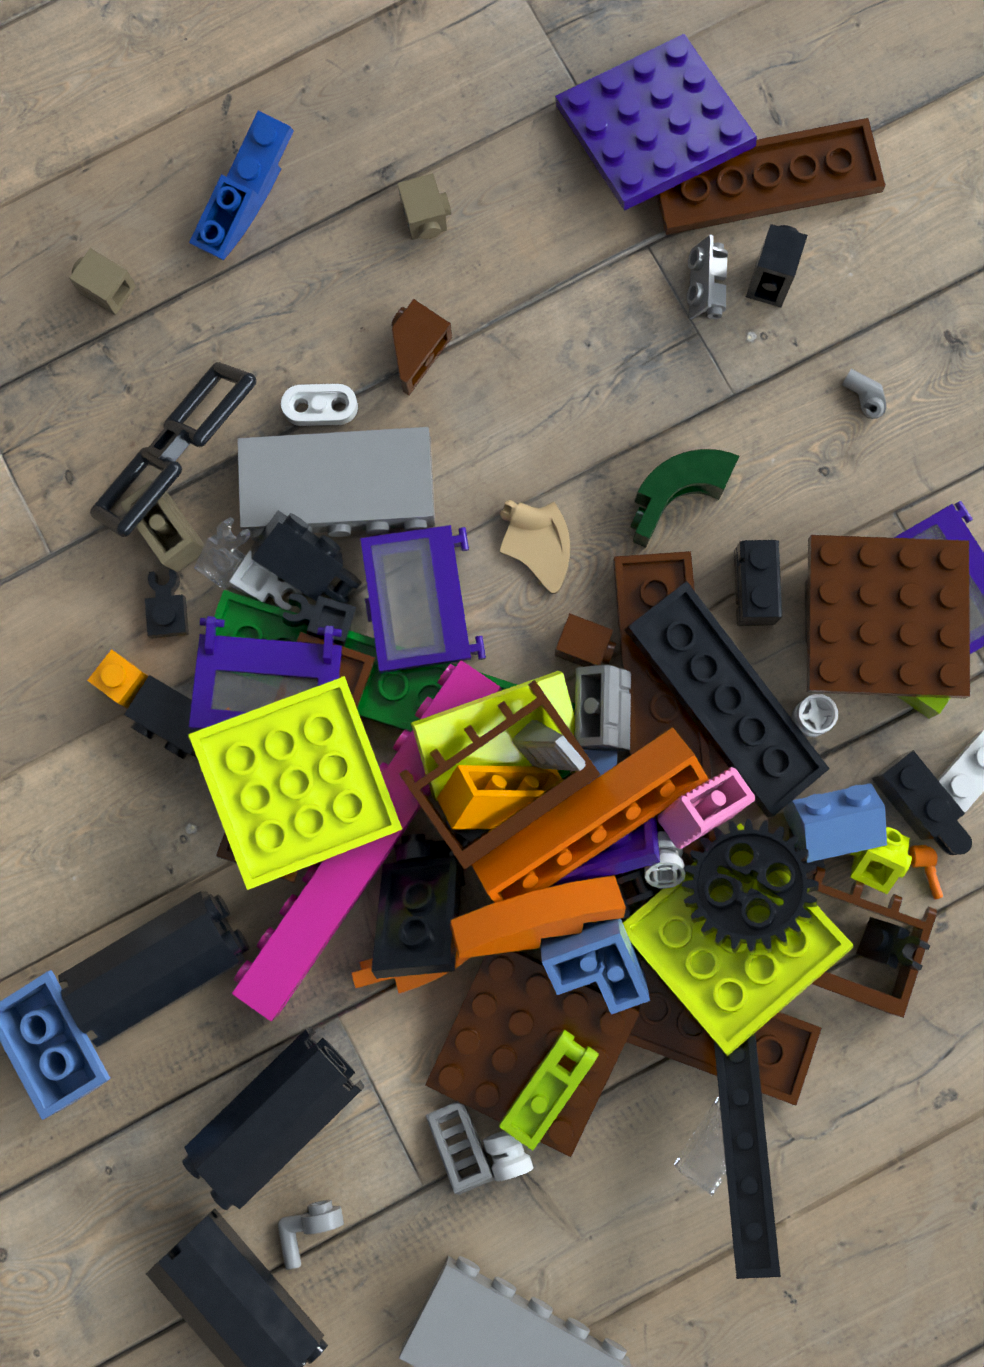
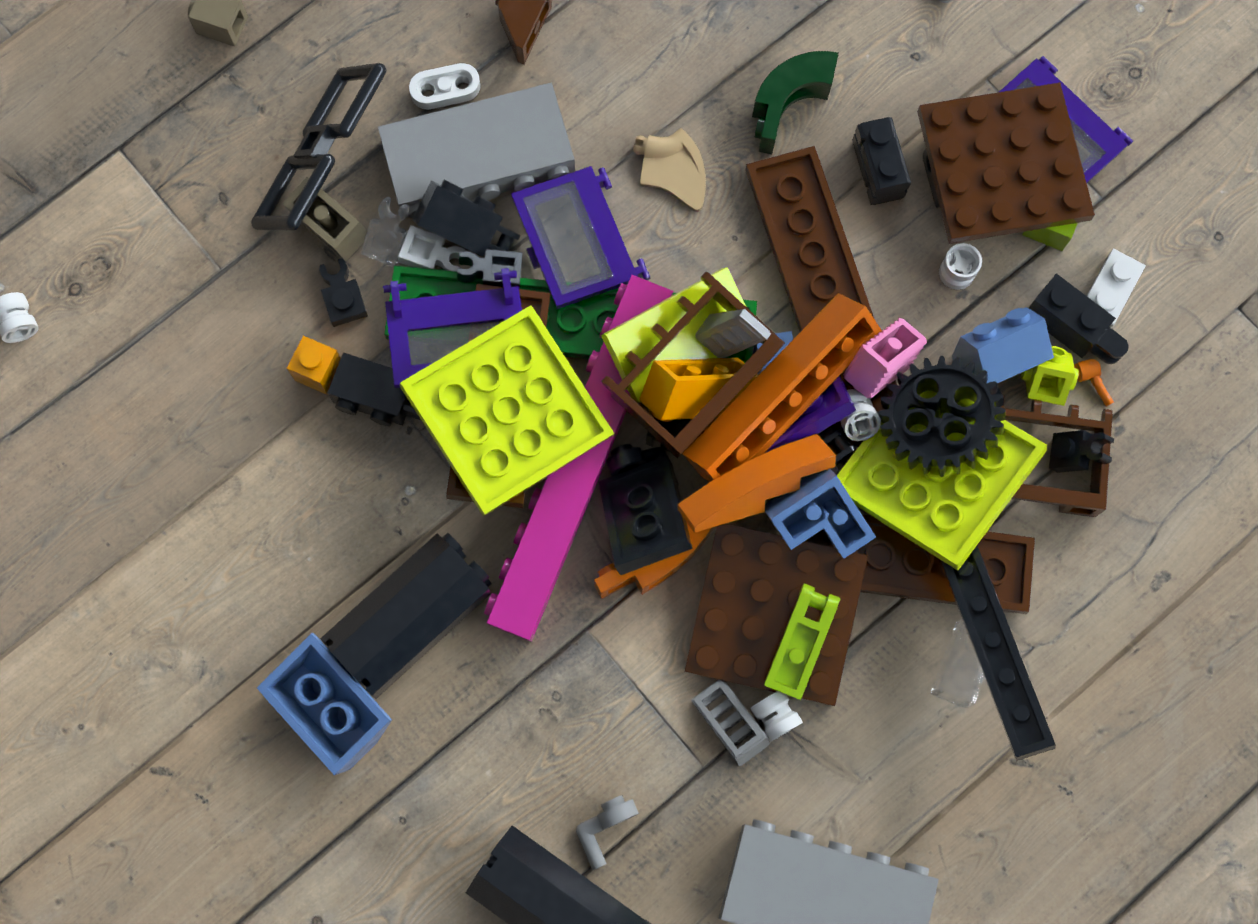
camera: 20 degrees left, 5 degrees down
(271, 1120) = (551, 727): black brick -> none
(585, 642) = (738, 245): reddish brown brick -> none
(602, 708) = (770, 291): light grey brick -> none
(727, 699) = (877, 263): black plate -> none

